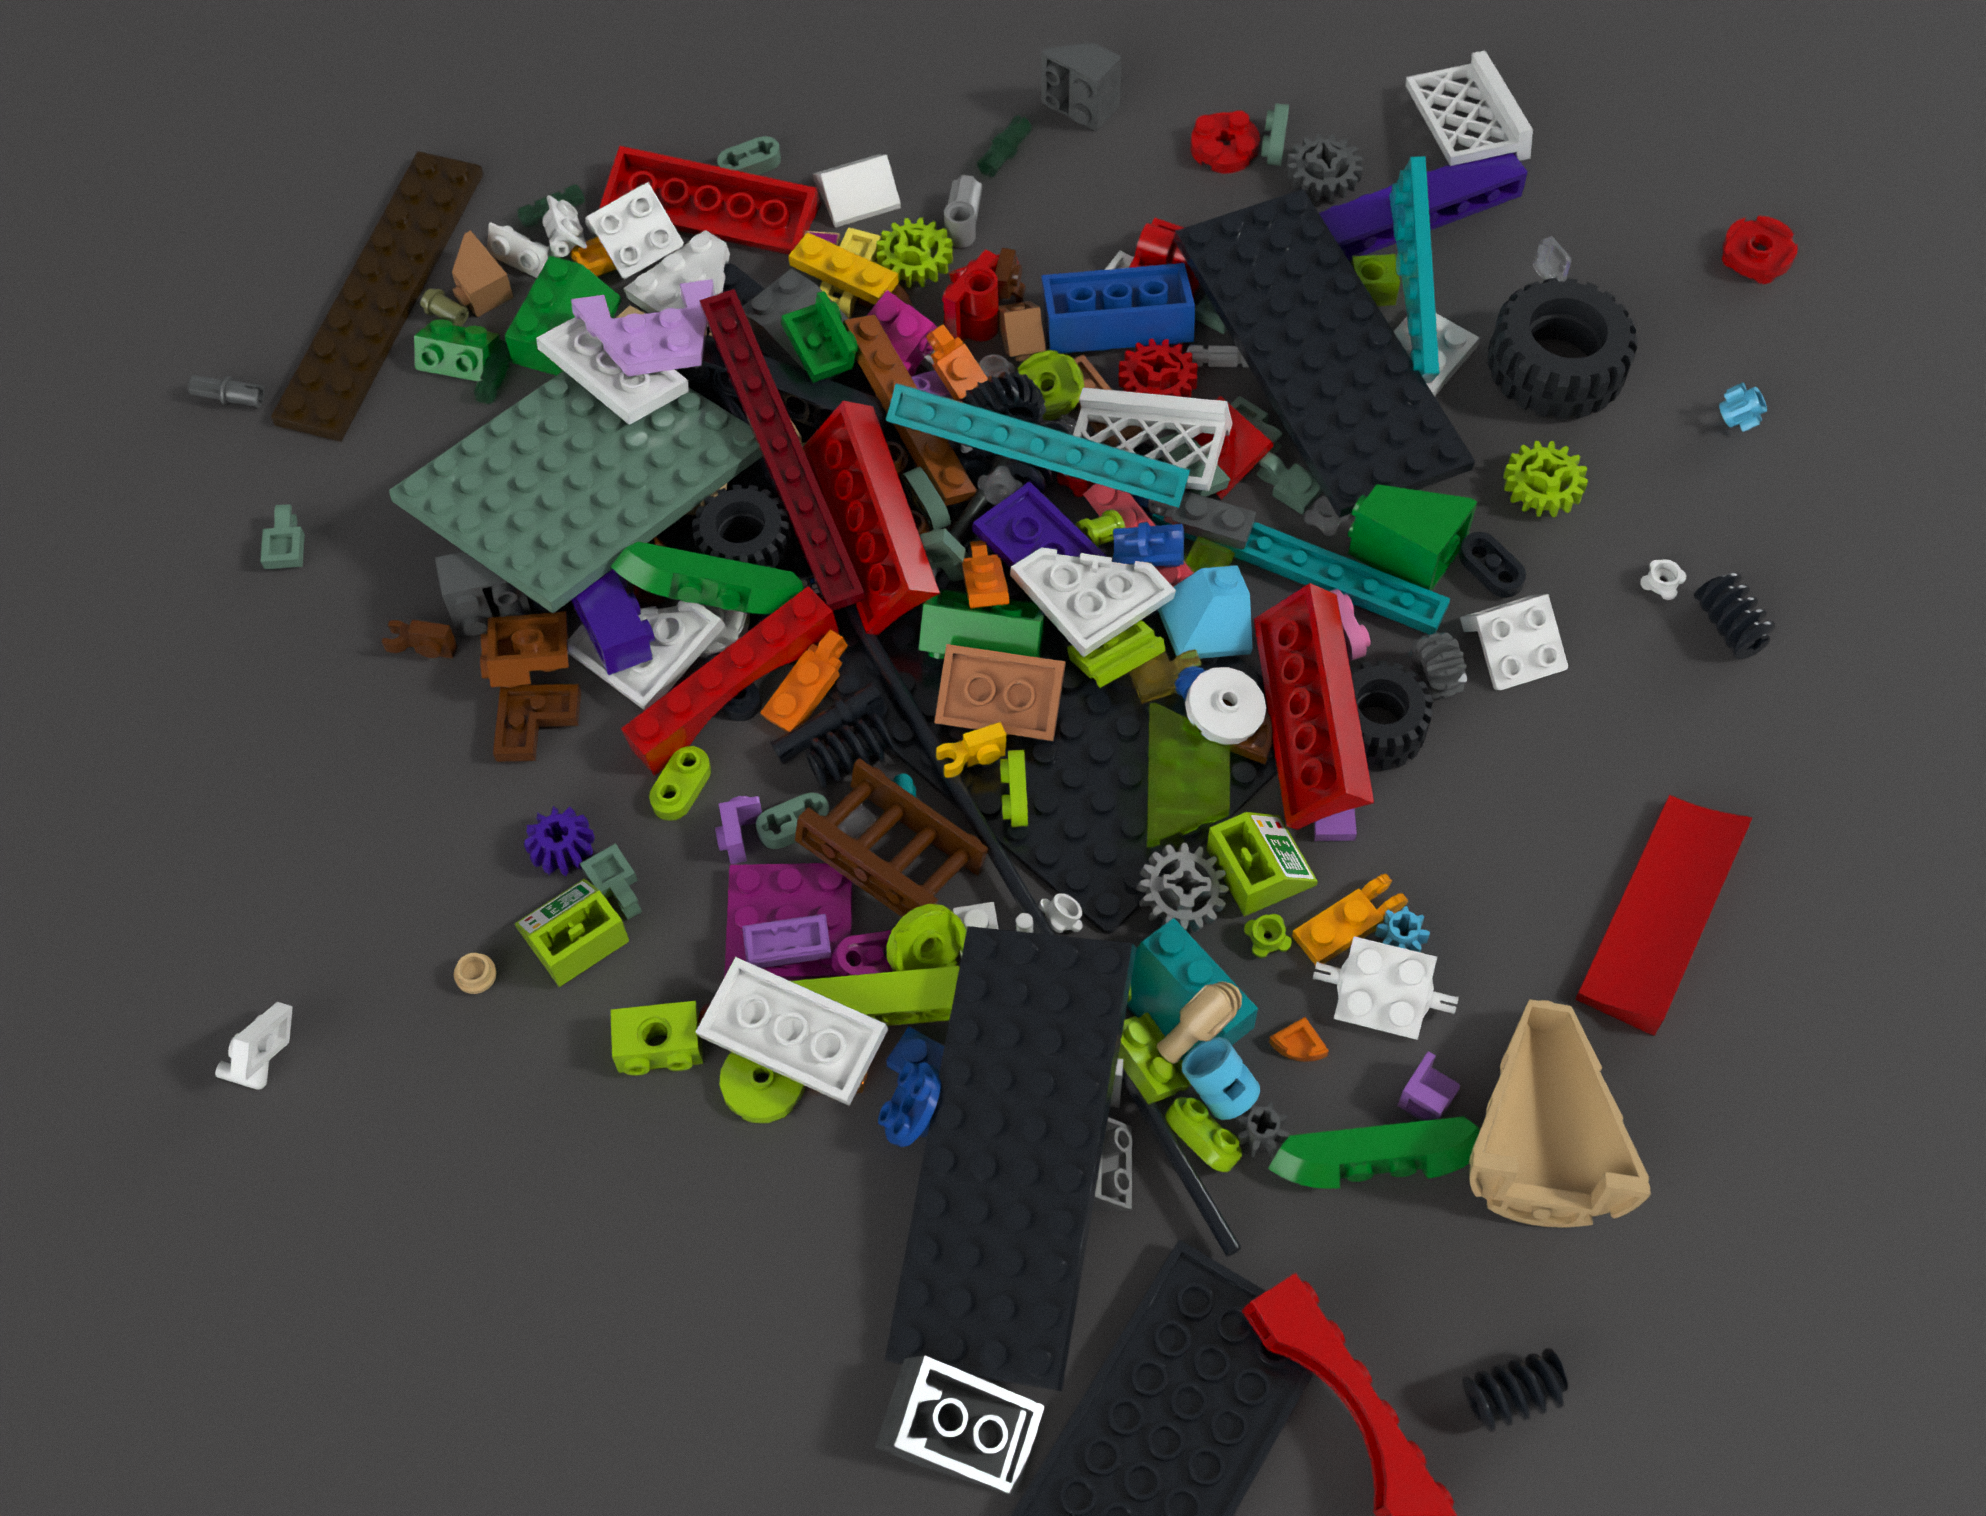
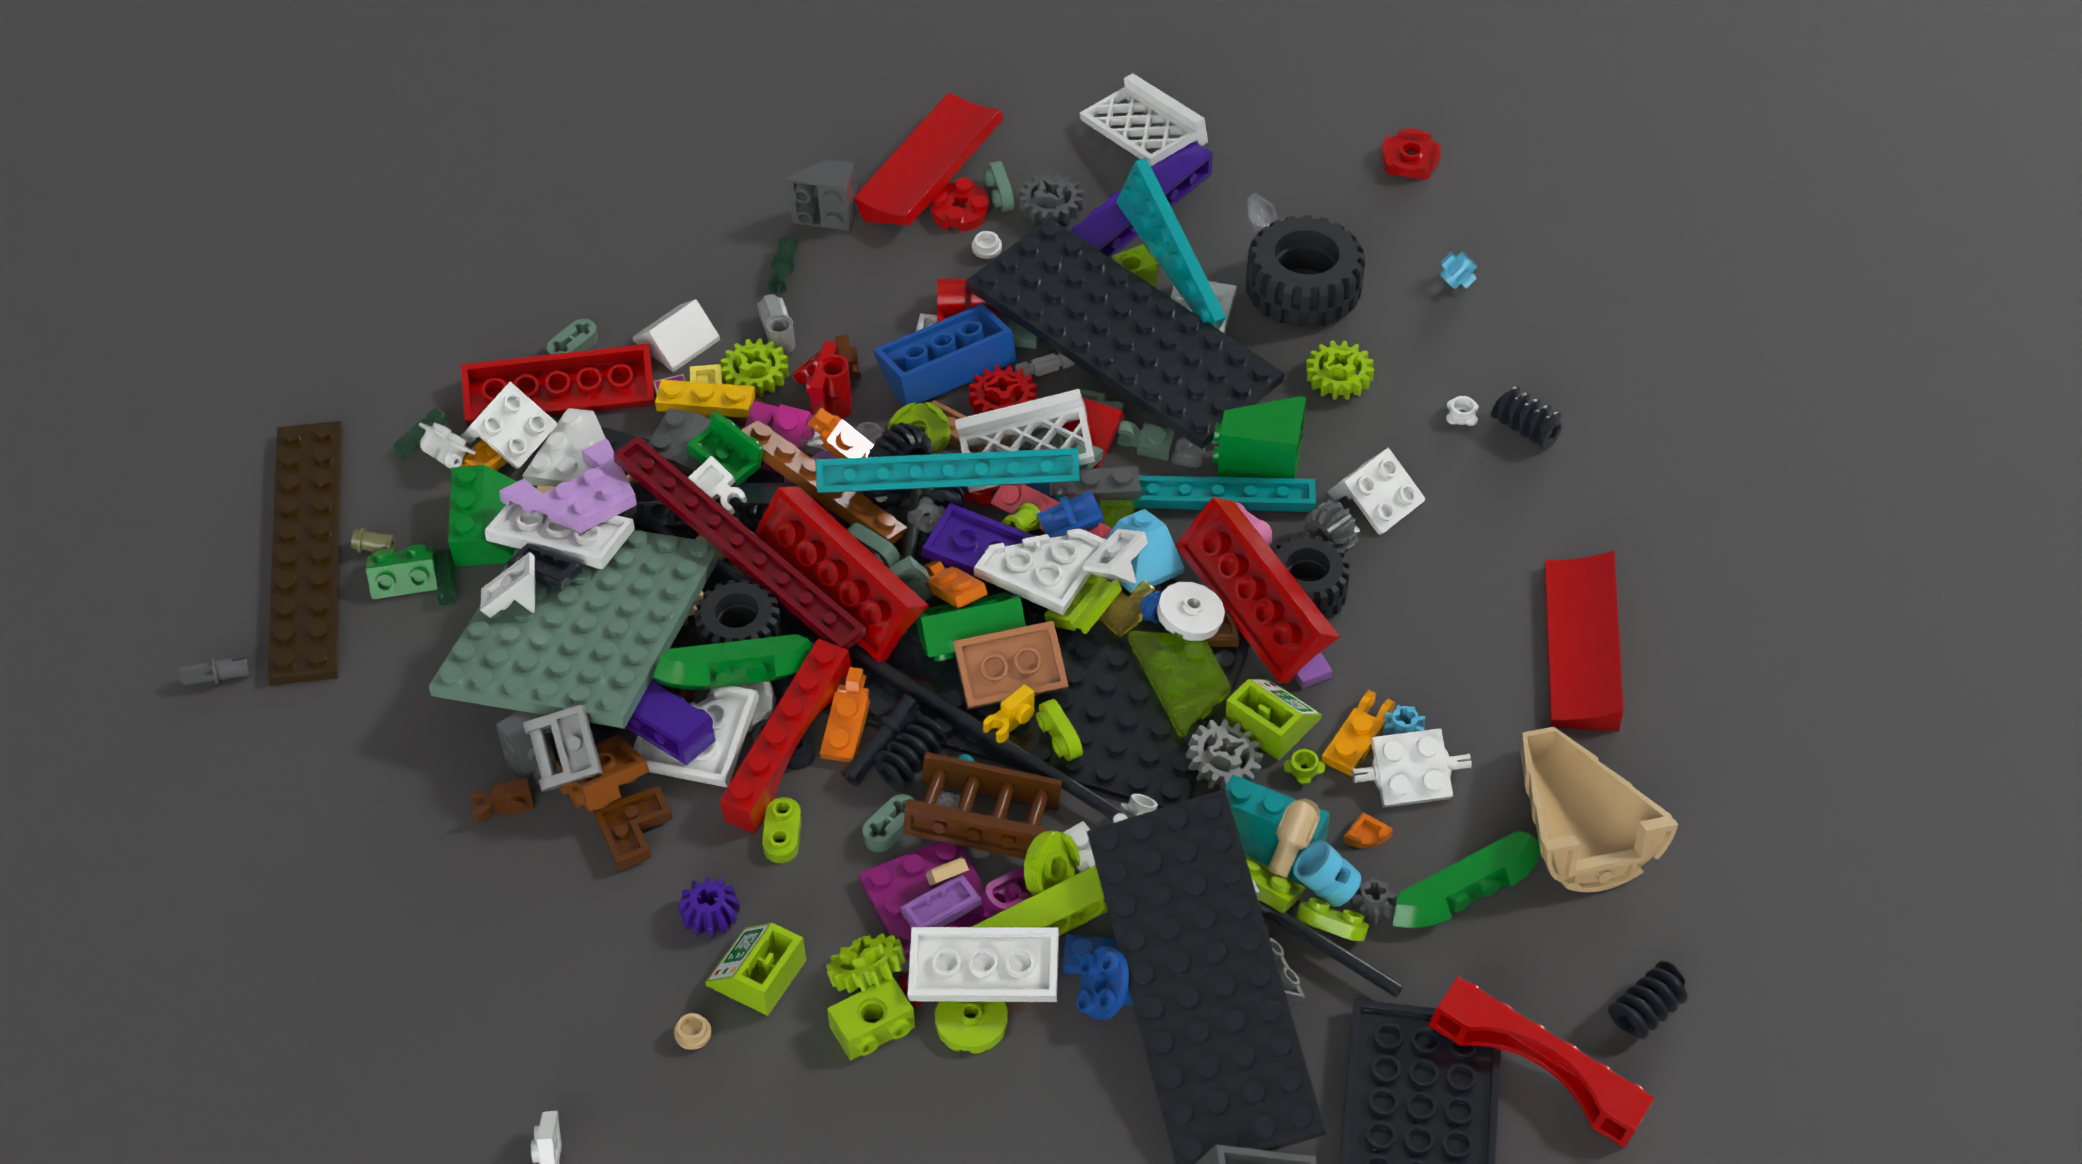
camera: 25 degrees left, 10 degrees down
(284, 543) = (336, 770): sand green plate -> none
(479, 278) = (393, 507): medium nougat slope -> none
(494, 610) = (573, 744): none -> light grey plate
(517, 249) = (414, 477): white hinge -> none
(526, 411) = (513, 584): none -> white slope
(572, 401) = (550, 567): none -> black plate
(612, 876) = (764, 910): sand green plate -> none
(679, 973) = (866, 963): none -> lime gear
(736, 813) = (845, 844): medium lavender bracket -> none
(789, 370) = (716, 483): none -> white plate
(810, 905) = (946, 871): none -> tan tile
(1021, 329) = (876, 397): medium nougat slope -> none
(1171, 609) = (1115, 556): none -> white slope
(1211, 78) = (926, 161): none -> red arch
(1229, 196) = (986, 245): none -> white plate
(1428, 1092) = (1479, 829): medium lavender panel -> none
(1495, 564) = (1334, 444): black plate -> none

